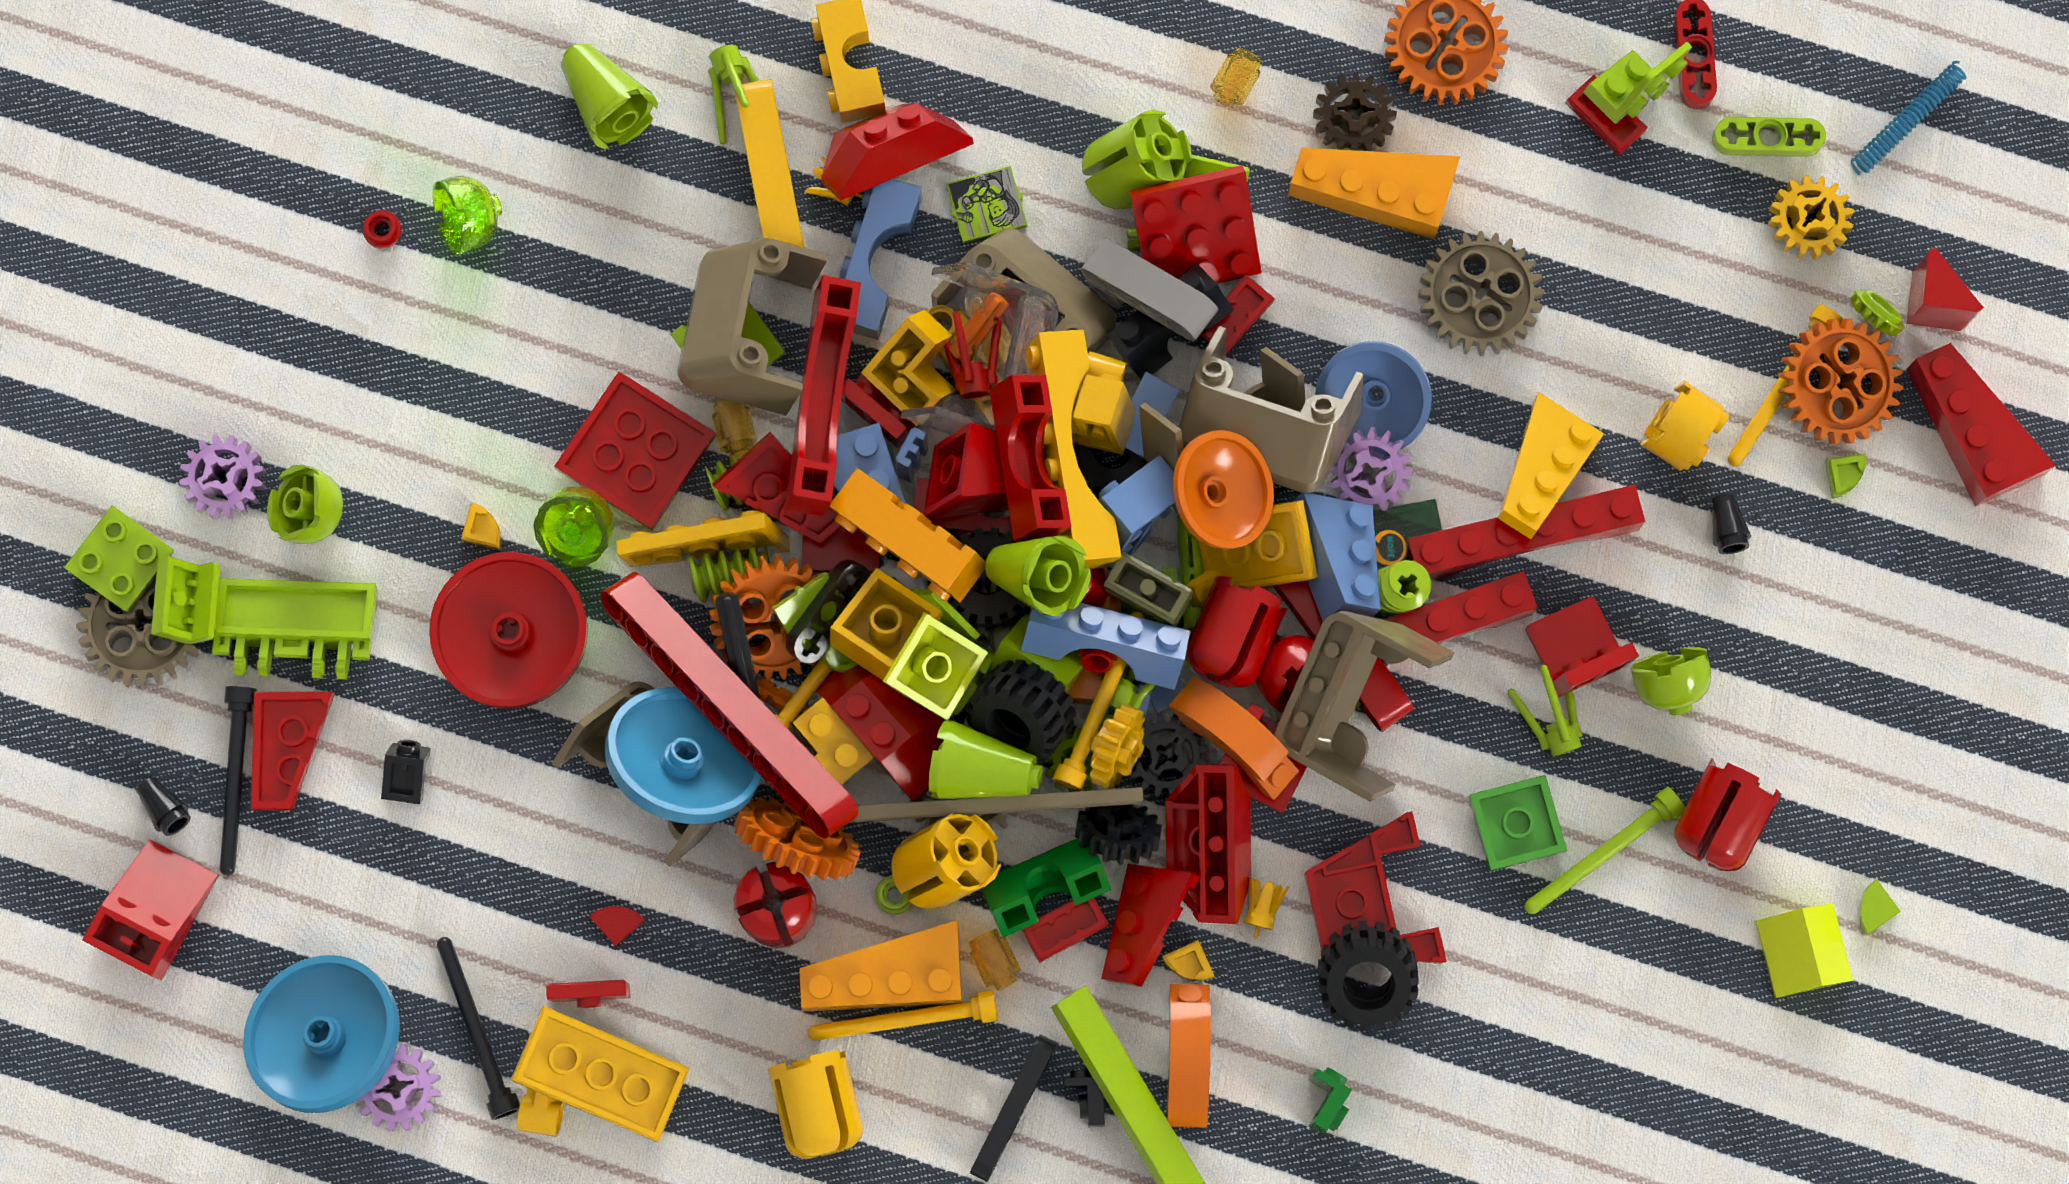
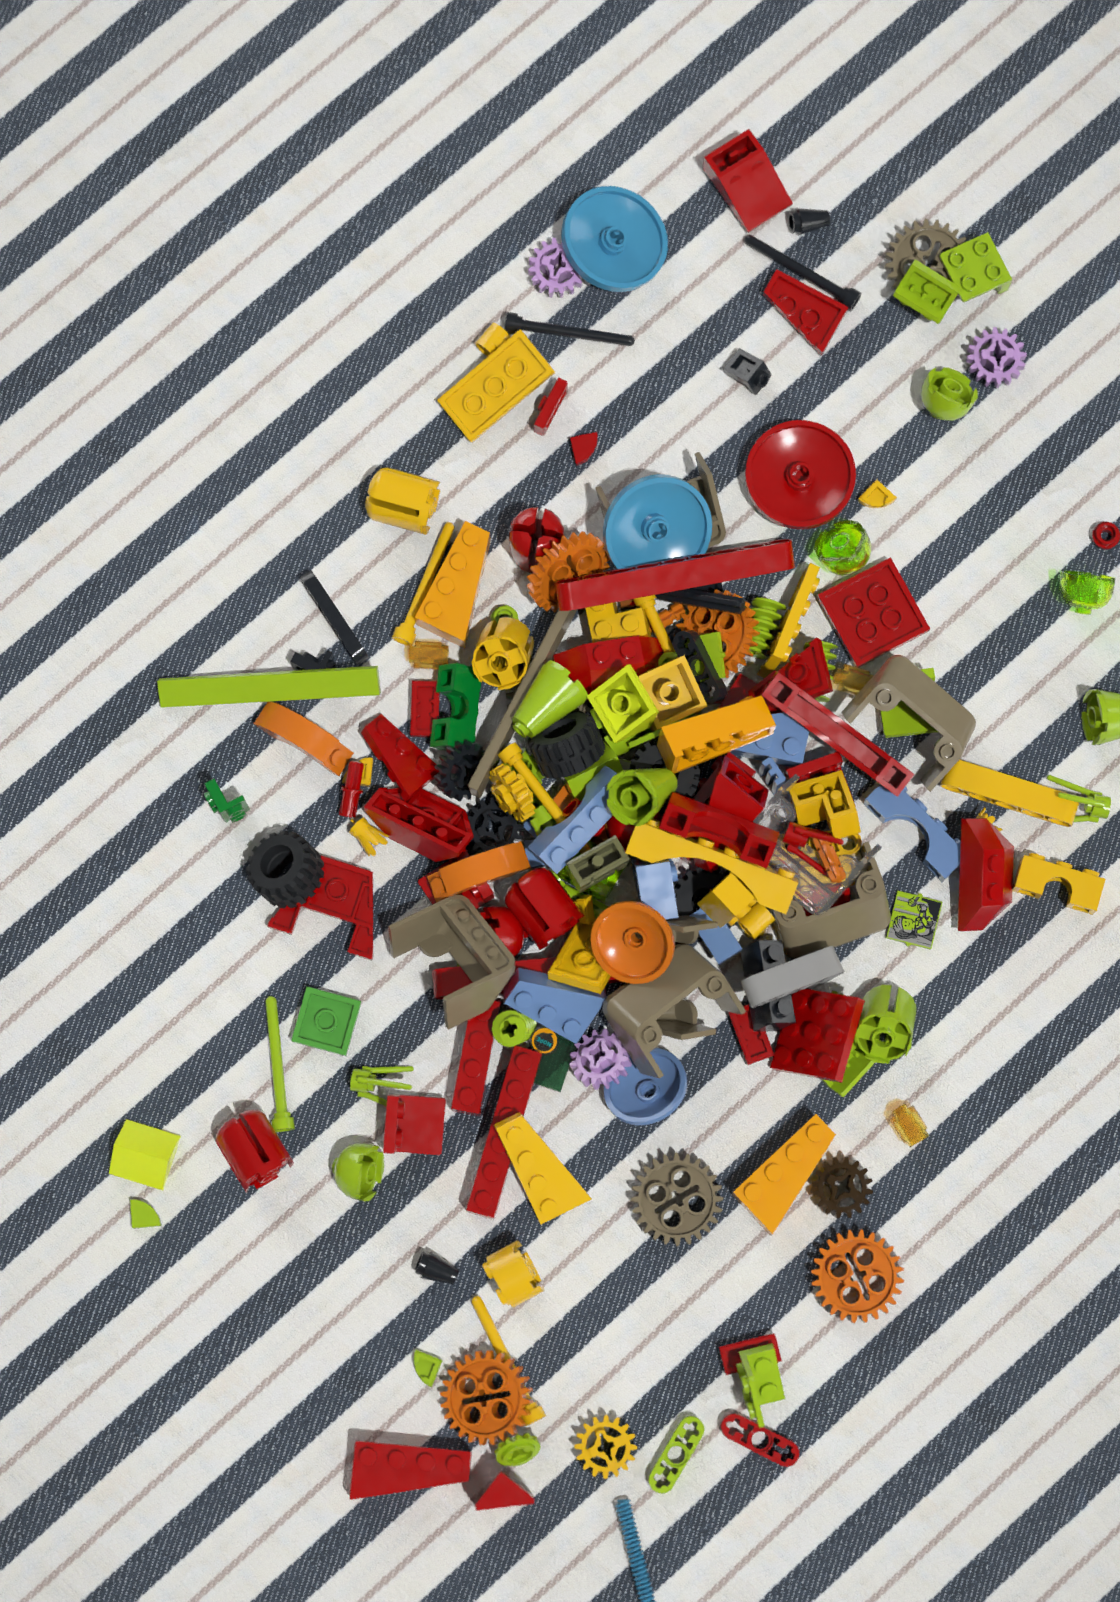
camera: 120 degrees right, 0 degrees up
(294, 616) = (884, 353): lime hinge -> none
(1219, 956) = (351, 790): none -> red axle

